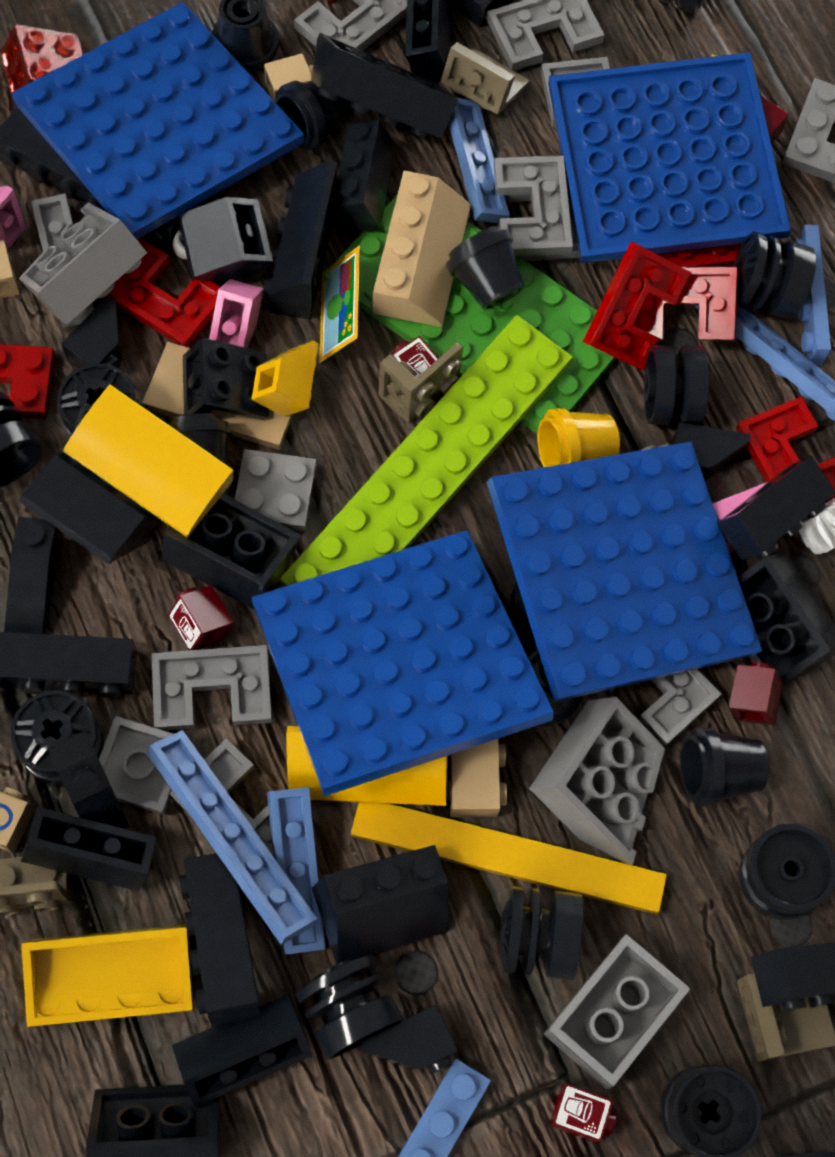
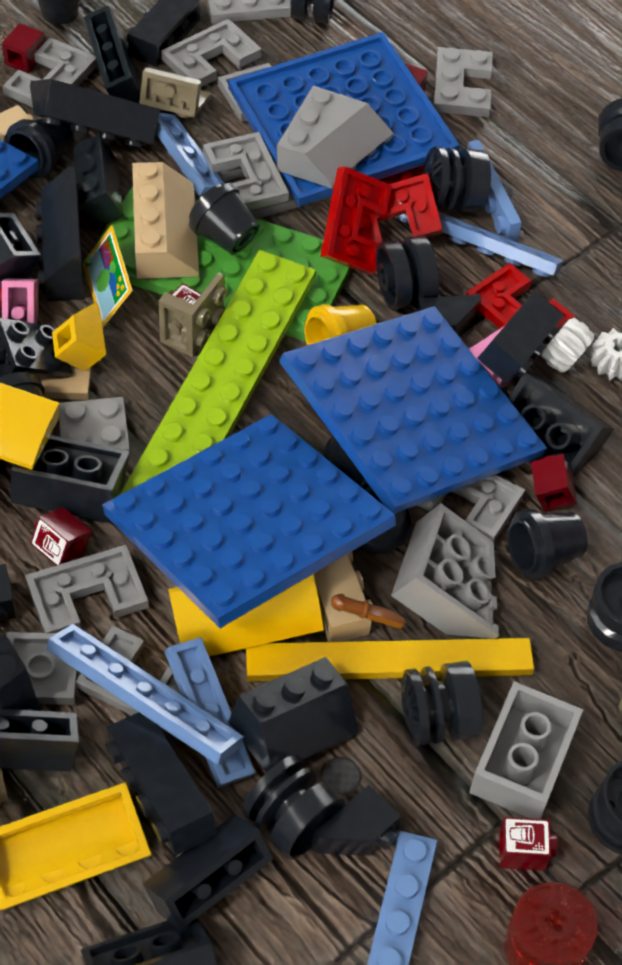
camera: 15 degrees left, 15 degrees down
(498, 803) = (366, 610): none -> dark orange piece
(640, 188) = (328, 135): none -> light grey wedge

